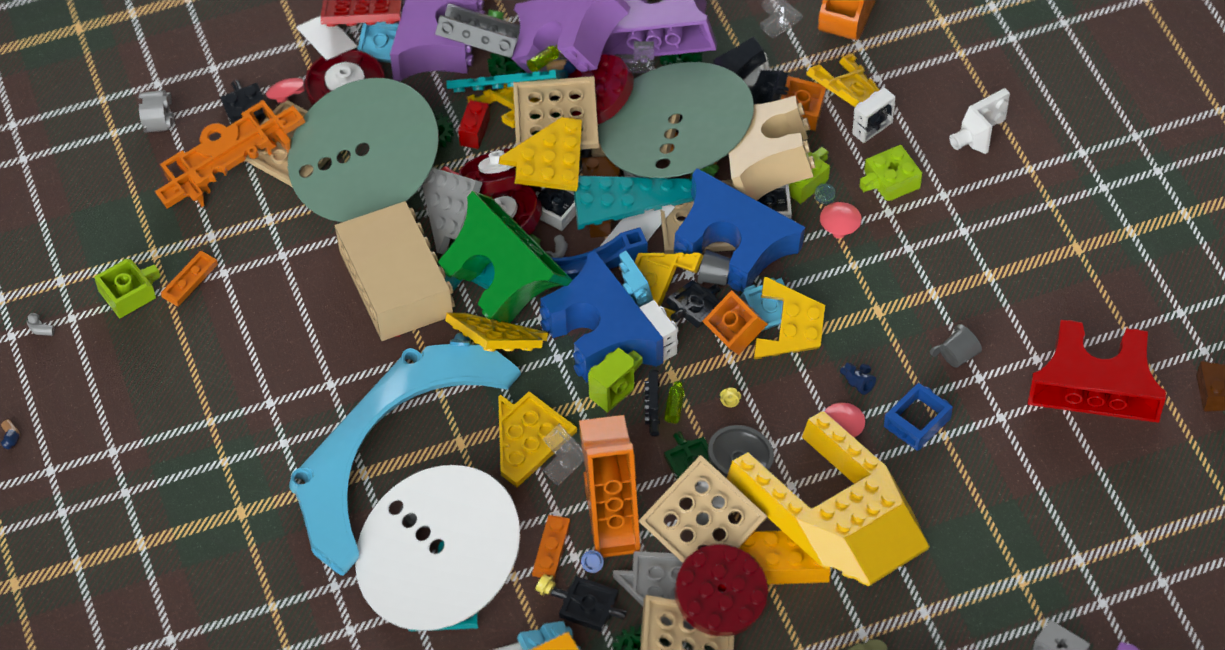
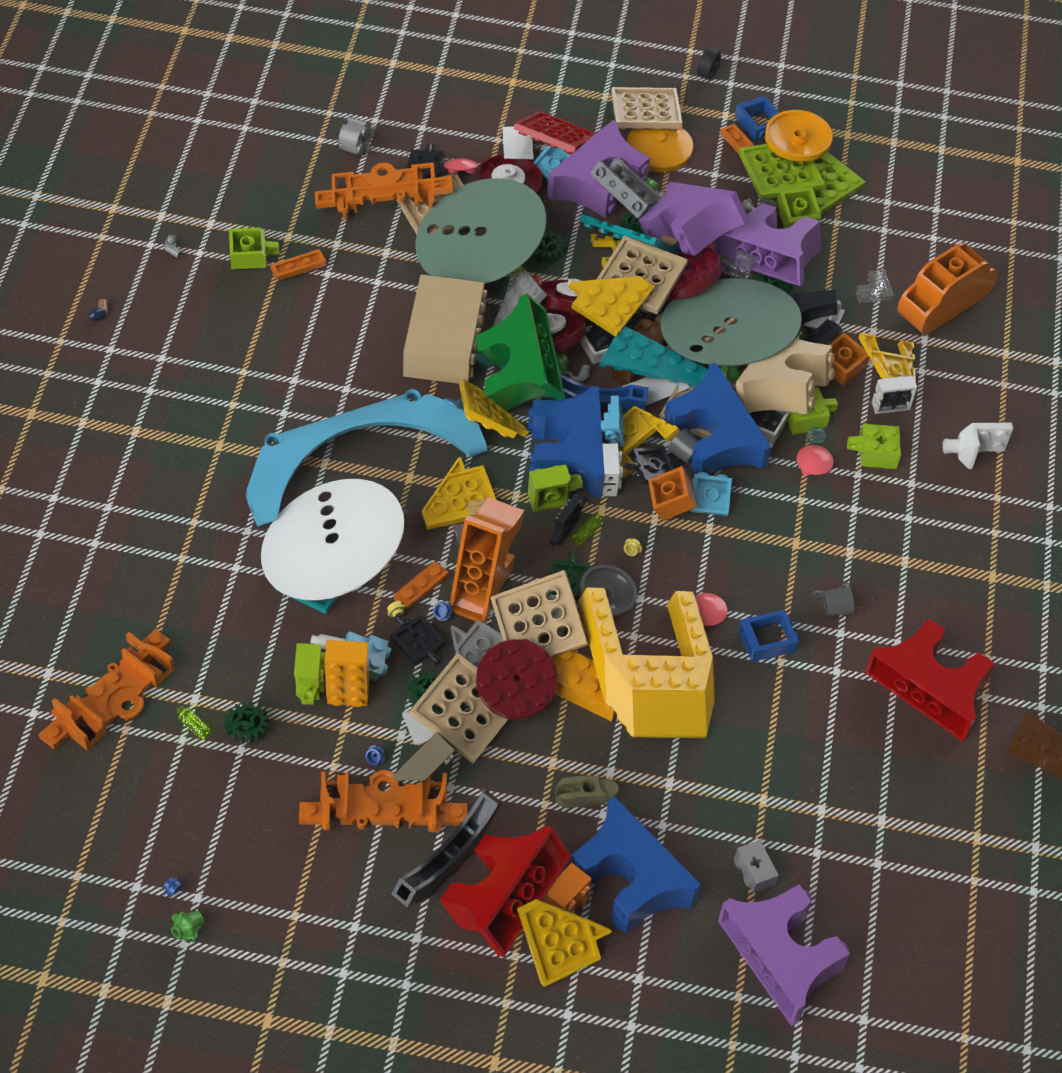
camera: 25 degrees right, 0 degrees up
(474, 124) = (581, 255): red brick -> none
(543, 58) = (659, 230): clear neon green cylinder -> none
(799, 325) = (723, 521): yellow wing -> none
(860, 379) = (742, 586): dark blue piece -> none

